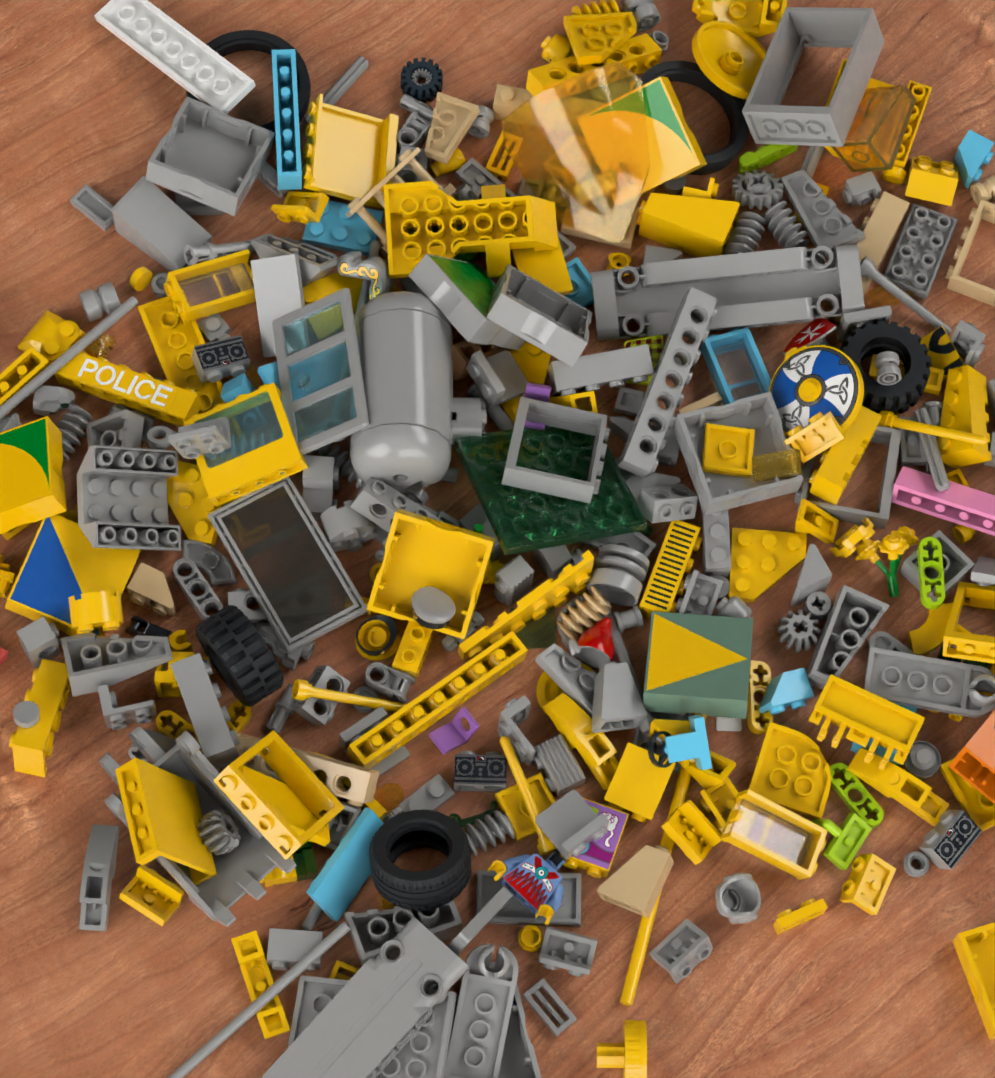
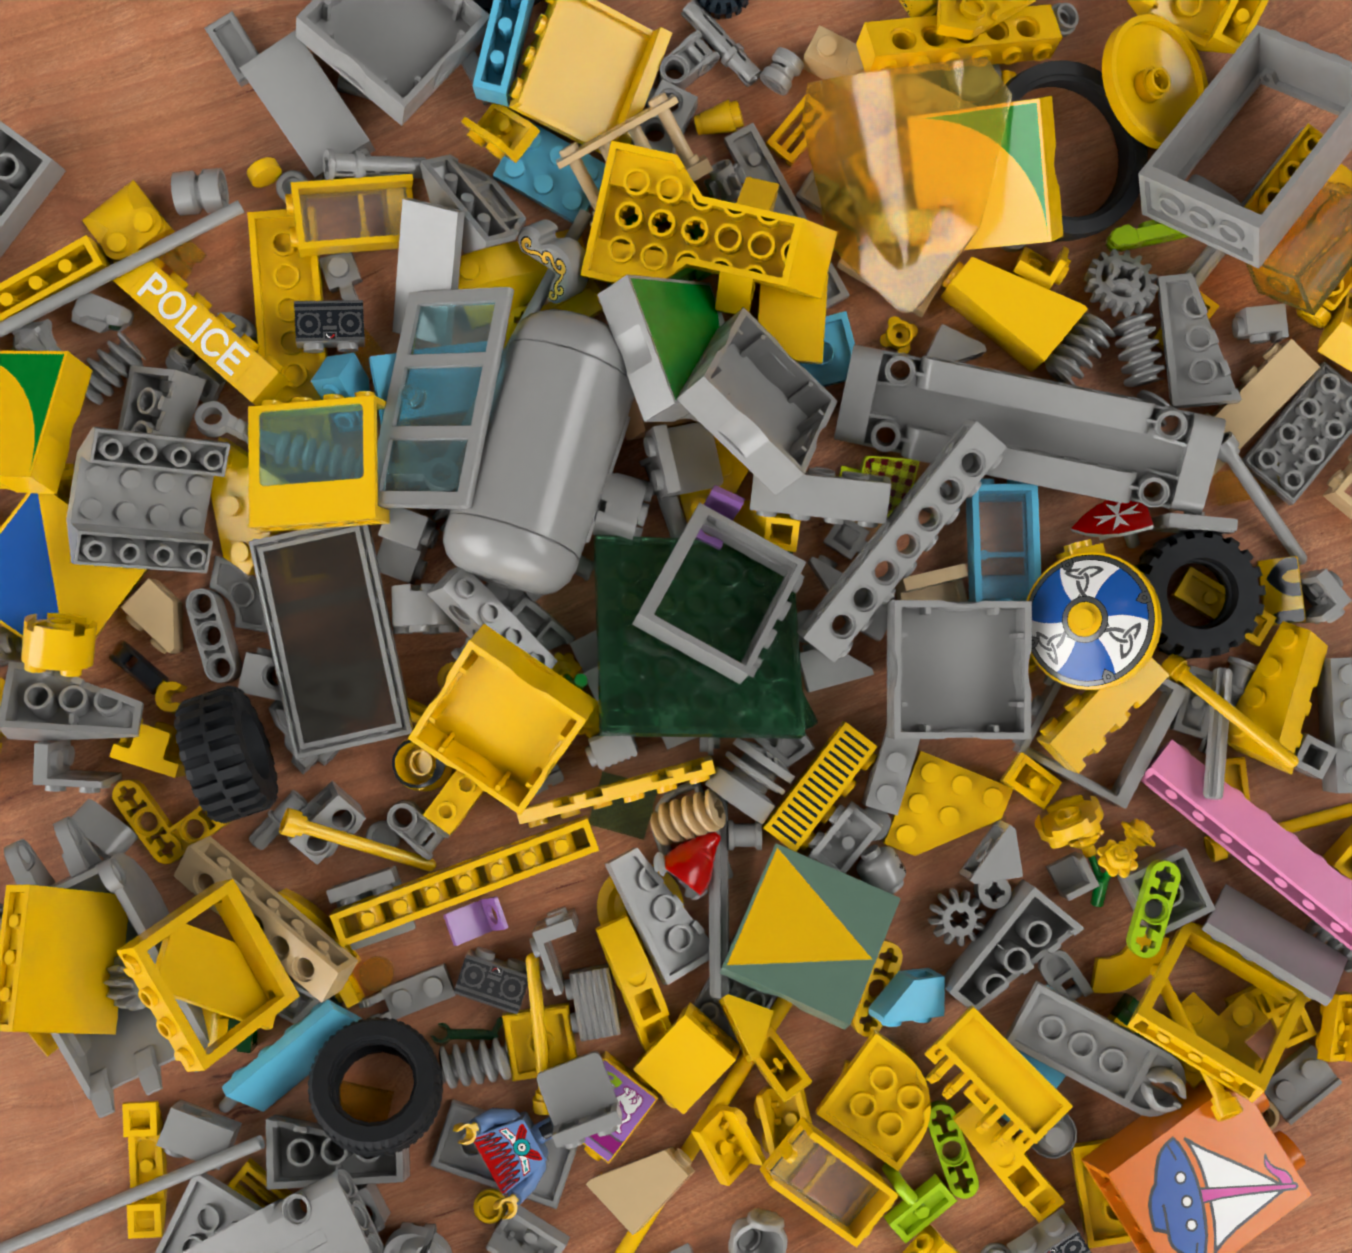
camera: 20 degrees right, 20 degrees up
(202, 438) = (260, 443): light grey bracket -> none
(205, 710) = (156, 824): light grey wedge -> none
(432, 607) = (490, 766): light grey piece -> none
(449, 125) = (736, 68): tan wing -> none
(481, 920) = (424, 1190): light grey beam -> none
(616, 700) = (688, 950): light grey slope -> none
(667, 503) = (845, 703): light grey brick -> none
(682, 746) = (747, 1055): medium azure piece -> none
(727, 450) = (947, 659): yellow tile -> none
(776, 464) = (1003, 707): clear yellow tile -> none
(816, 436) = (1068, 687): yellow bracket -> none
(870, 578) = (1072, 876): none -> light grey panel
(887, 366) = (1201, 612): light grey wheel -> none

